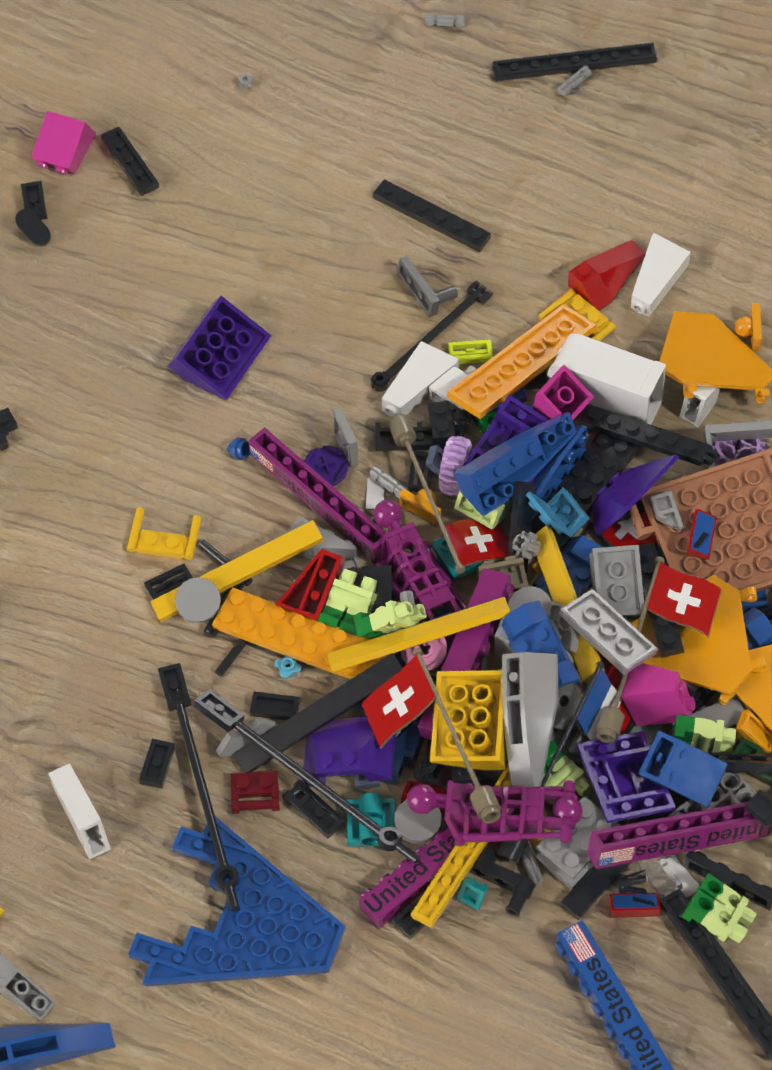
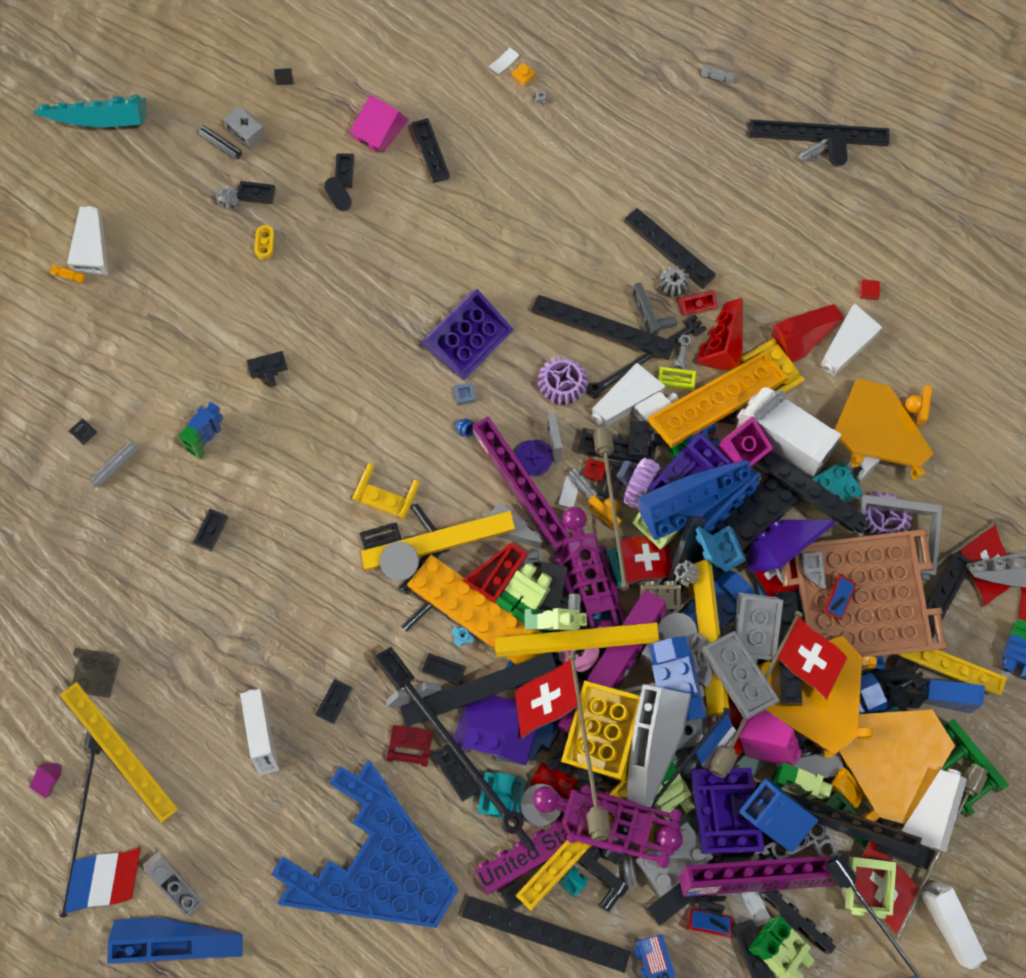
camera: 10 degrees right, 10 degrees up
(177, 699) = (364, 645): black bar -> none
(193, 49) = (504, 61): none -> white sticker
(219, 60) = (523, 74): none -> light orange plate
(230, 414) = (464, 393): none -> sand blue tile
(332, 369) = (552, 372): none -> lavender gear
(374, 312) = (603, 327): none -> black plate
(398, 465) = (594, 470): none -> red tile
(444, 249) = (680, 284): none -> light grey gear
(453, 953) = (546, 934): none -> black plate
(470, 313) = (684, 344): none -> light grey bar
(476, 267) = (697, 302): none -> red slope
(517, 301) = (725, 342): none -> red wedge
(580, 349) = (770, 405): none -> light grey axle
(599, 74) = (837, 149): none -> black tile
(669, 217) = (869, 289): none -> red tile
(678, 420) = (839, 482): none -> teal plate

